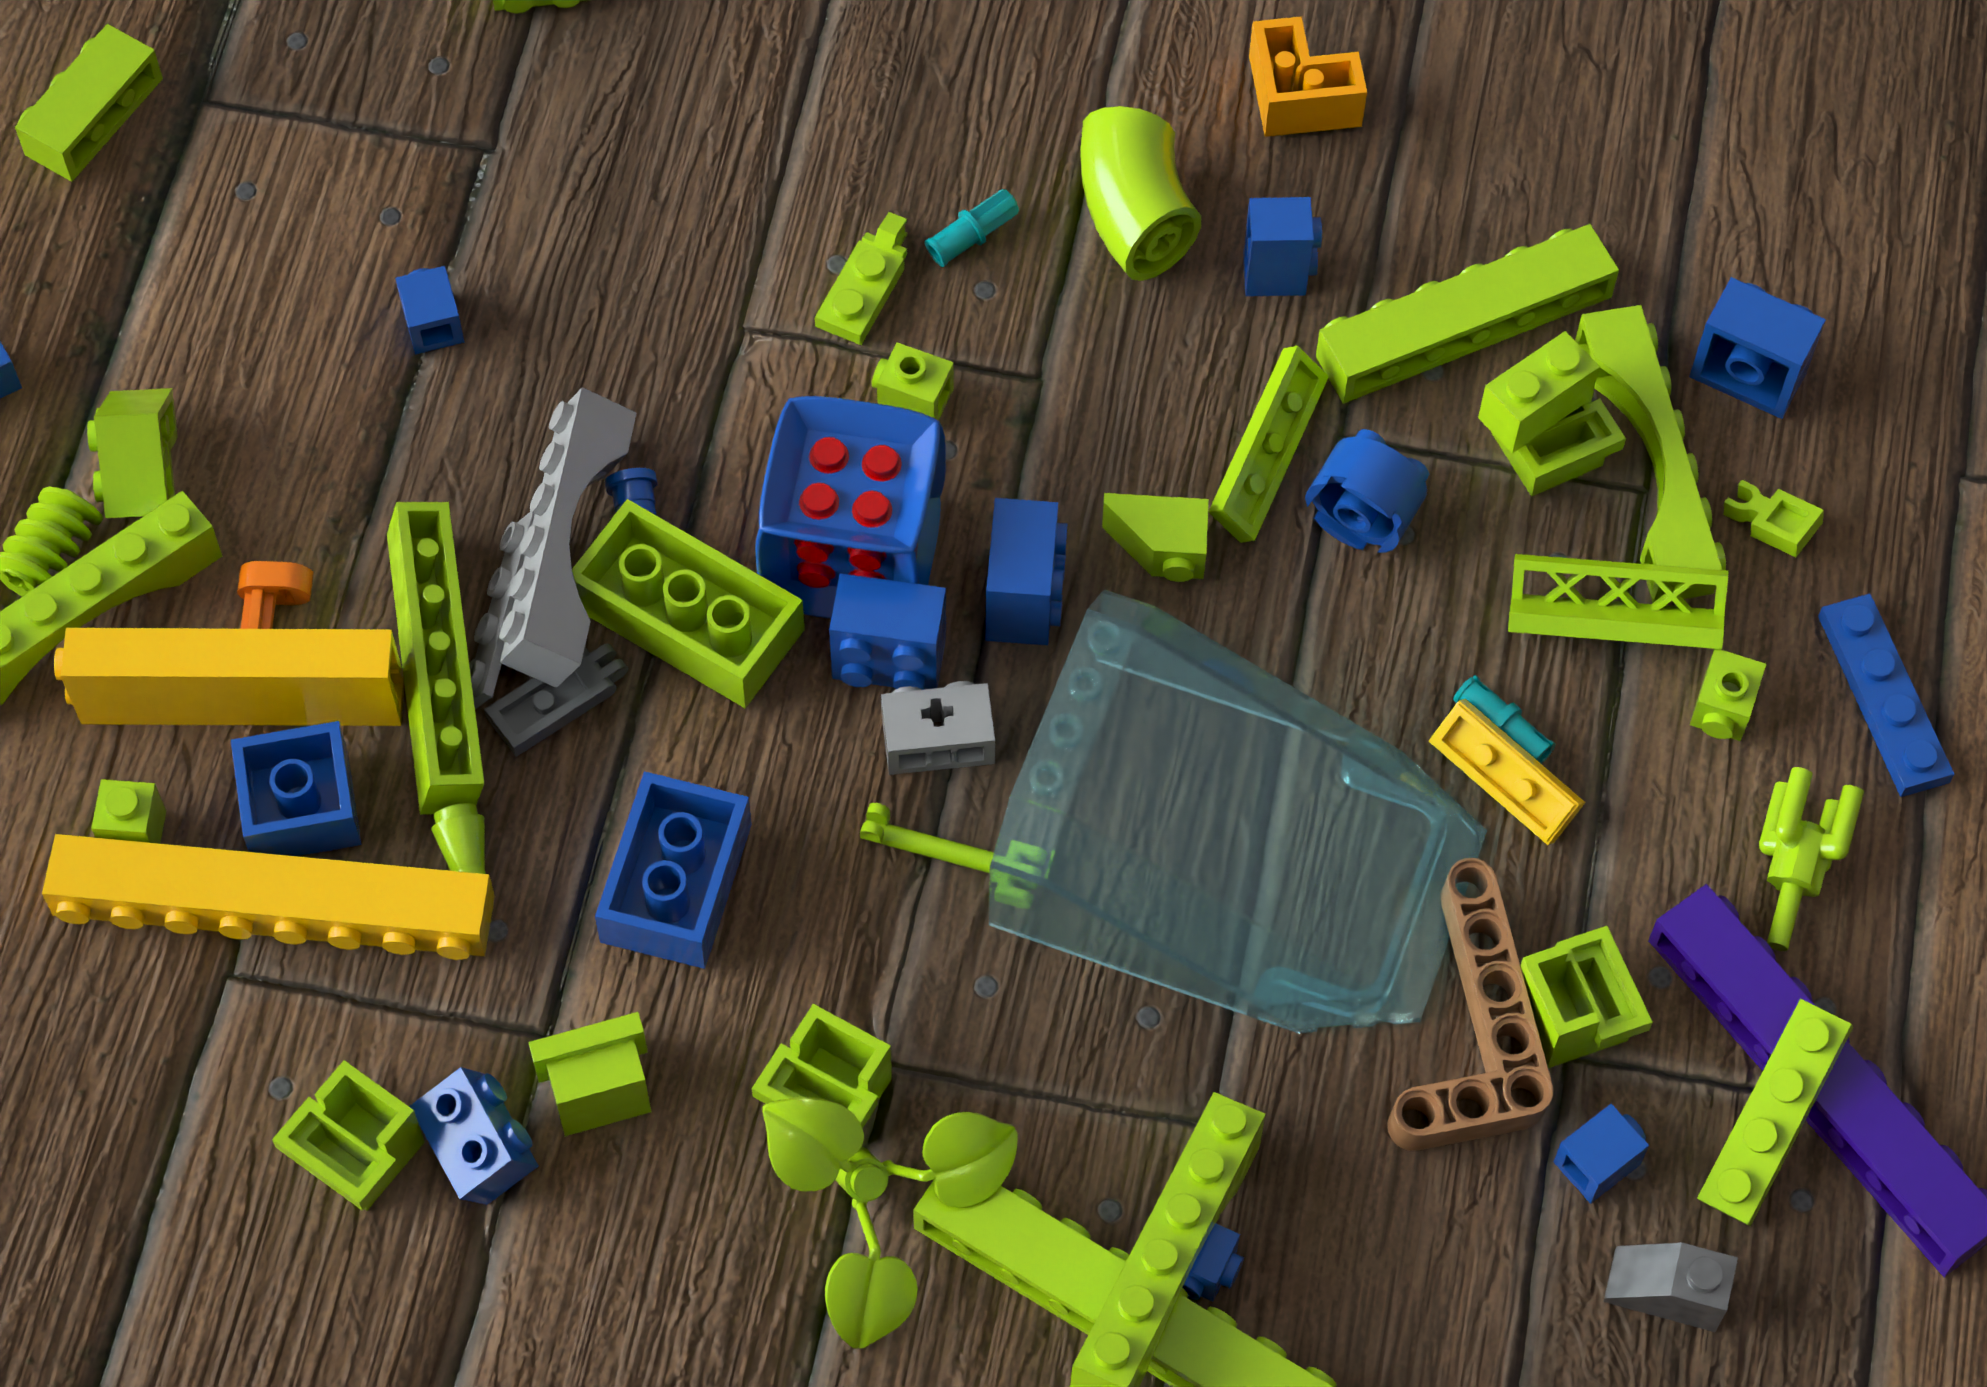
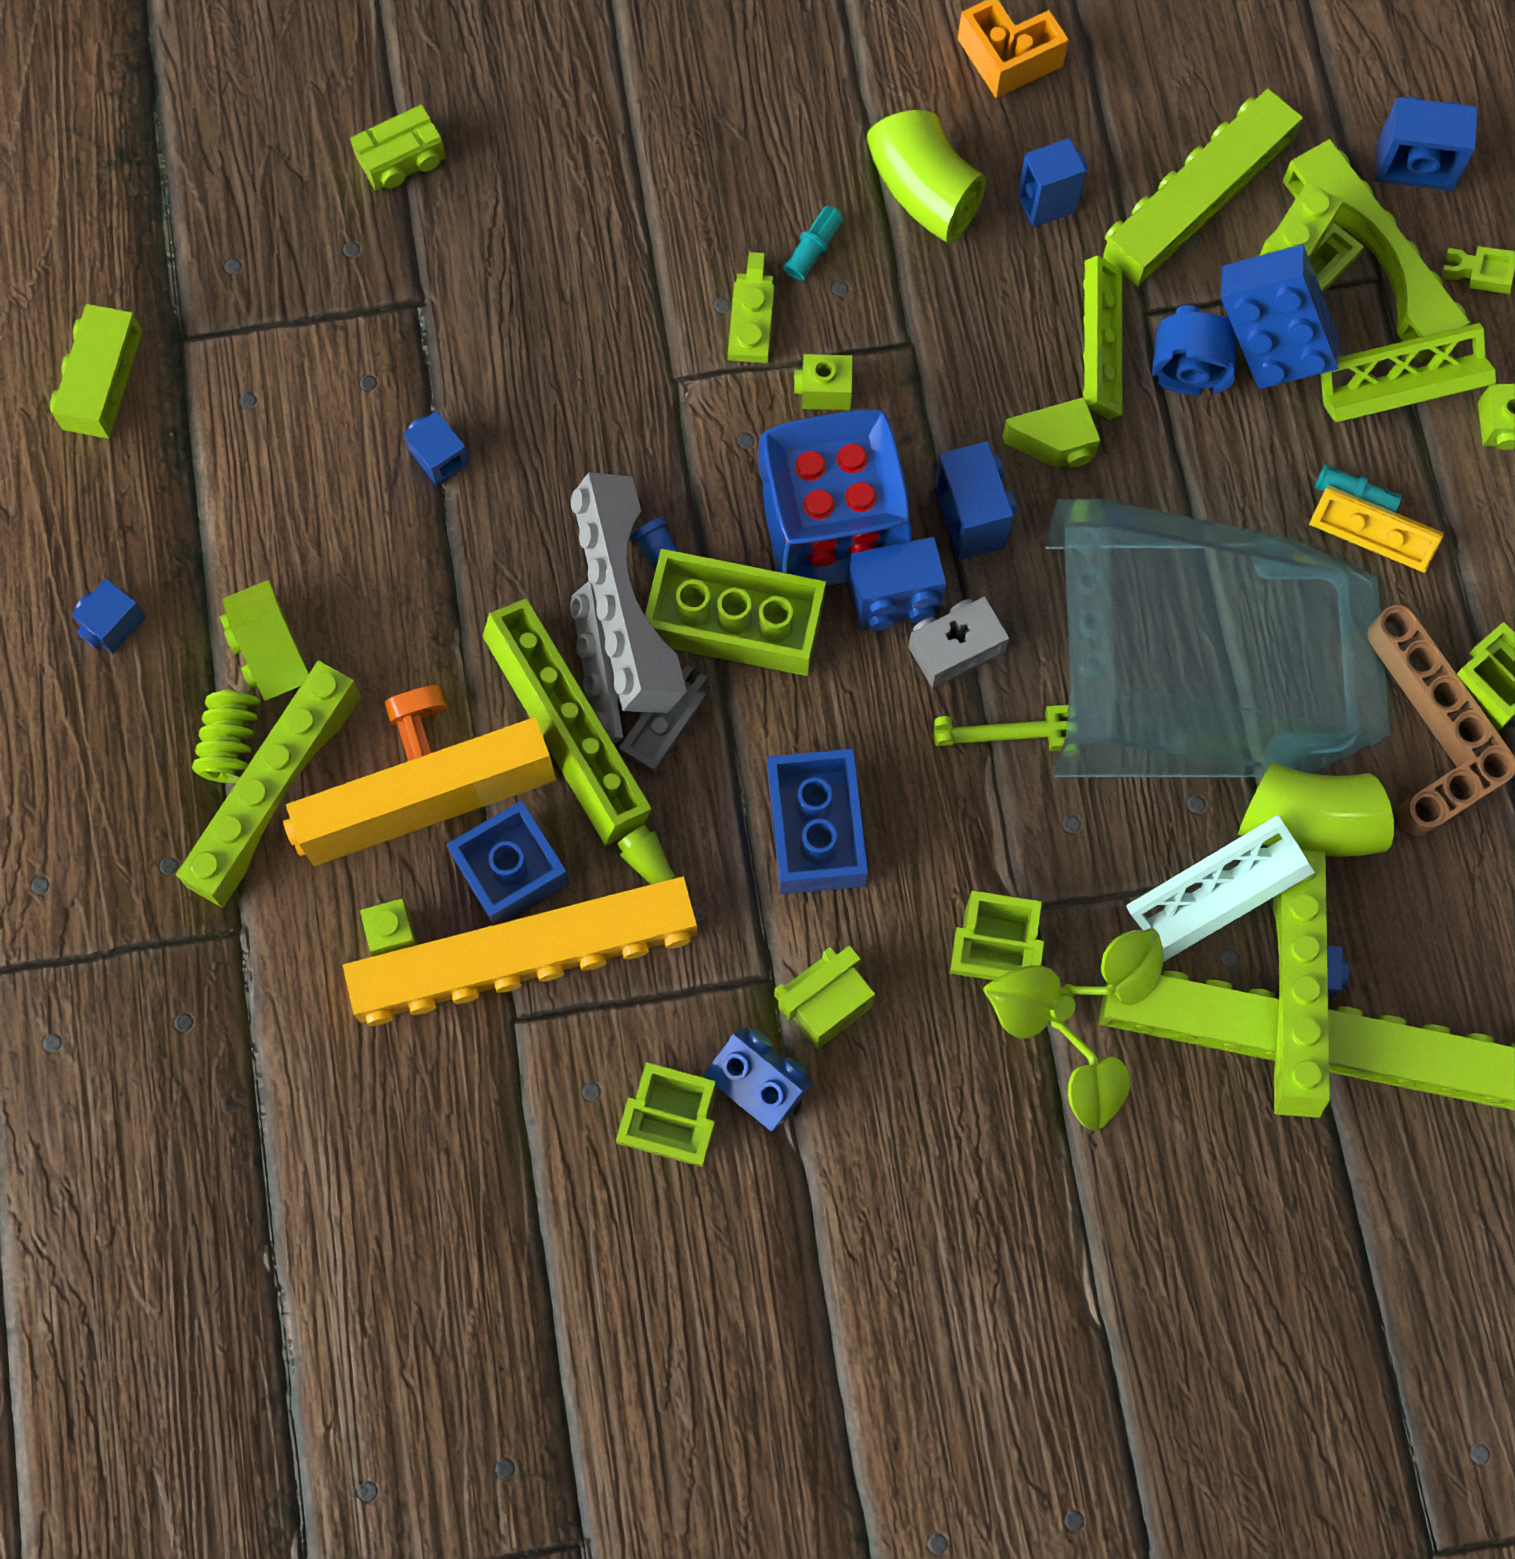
camera: 20 degrees left, 10 degrees up
(1123, 1118) = (1224, 893): none -> light aqua fence
(1274, 1065) = (1324, 811): none -> lime brick
(1476, 480) = (1280, 316): none -> blue brick

